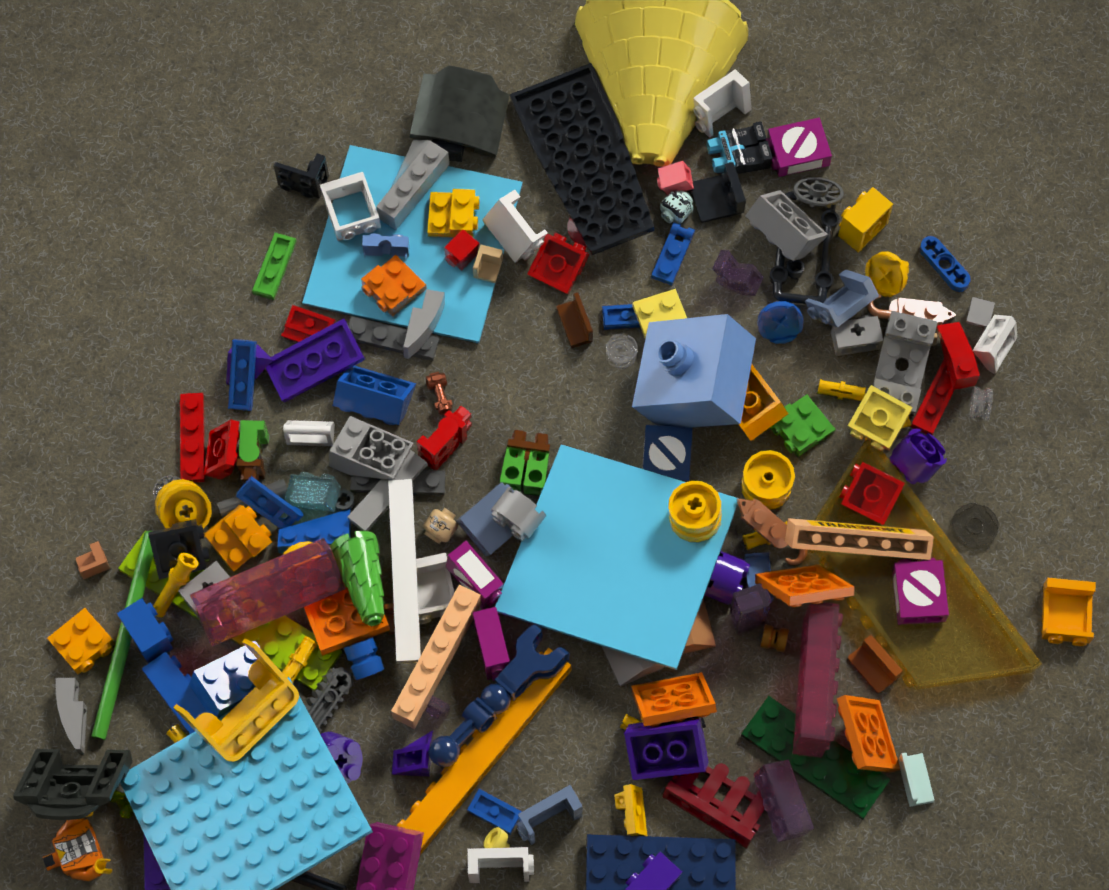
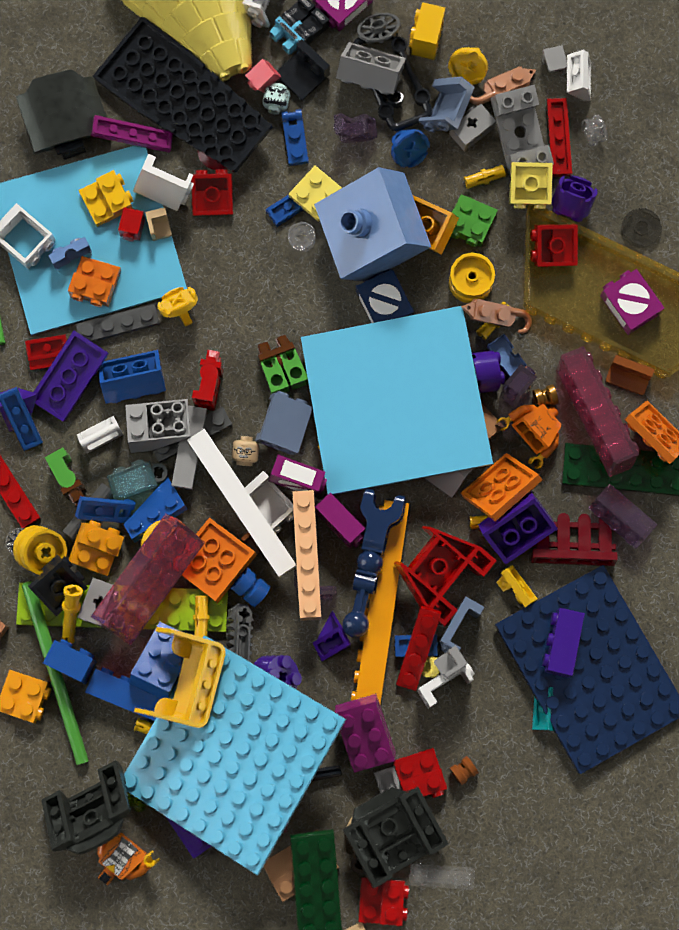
camera: 30 degrees left, 10 degrees up
(72, 712) = (50, 756): light grey slope -> none
(222, 450) = (42, 487): red plate -> none
(361, 572) = (211, 524): bright green cone -> none
(416, 176) = (58, 183): light grey wedge -> none
(423, 322) = (137, 298): light grey slope -> none
(437, 382) = (173, 339): copper bar -> none
(461, 347) = (178, 303): none -> yellow tile
(494, 812) = (418, 648): none -> red plate
(513, 840) = (450, 662): none -> light grey panel
(514, 166) = (131, 133): none -> magenta tile
(517, 513) = (304, 411): light grey brick -> none
(562, 742) = (439, 566): none -> red wedge
(575, 322) = (252, 233): reddish brown panel -> none
(695, 511) = (437, 322): yellow wheel -> none
(746, 663) = (537, 427): none -> orange torso
(804, 585) = (548, 345): orange plate -> none
(859, 539) = (567, 287): light nougat brick -> none
(958, 356) = (559, 102): red slope -> none
(960, 272) = (504, 26): blue beam -> none

